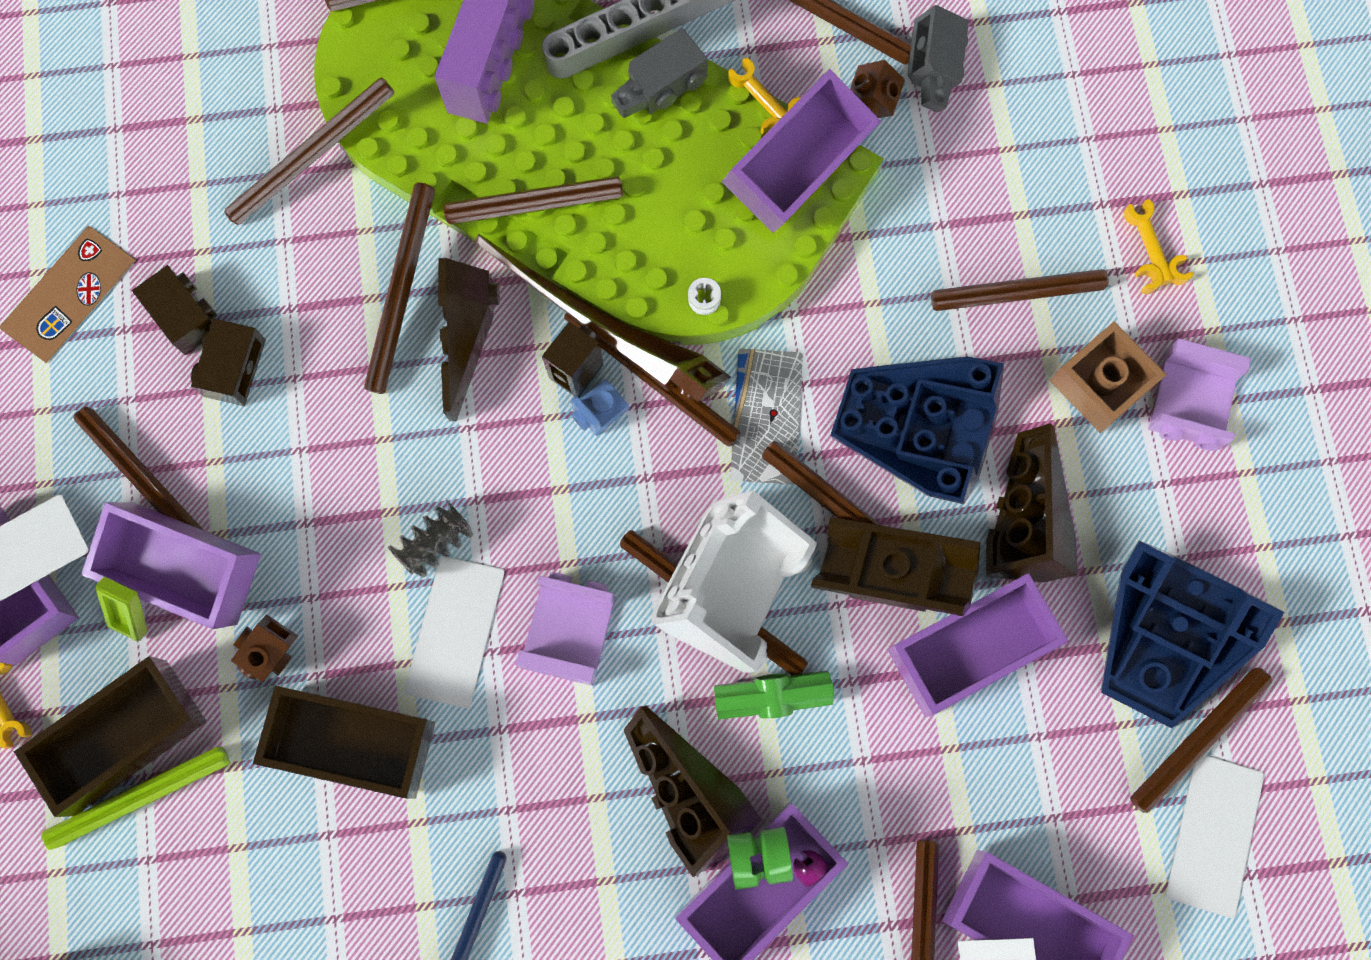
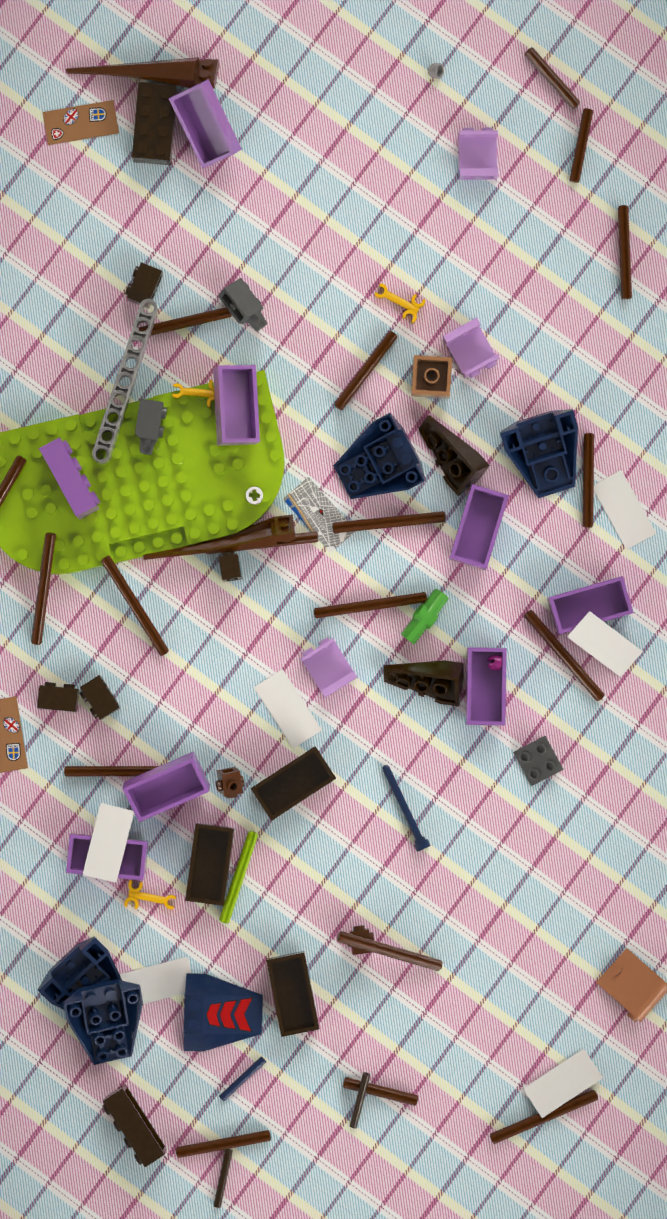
camera: 50 degrees left, 10 degrees up
(121, 609) = (165, 820): lime tile -> none
(432, 540) = (247, 684): clear smoke piece -> none
(468, 307) = (168, 587): dark brown wedge -> none
(533, 200) = (151, 522): reddish brown axle -> none
(598, 408) = (255, 575): medium blue bracket -> none
(732, 579) = (369, 591): white windscreen -> none
(774, 853) = (480, 671): bright green wheel -> none
(878, 87) = (233, 344): reddish brown brick -> none
(899, 567) = (424, 527): dark brown piece -> none

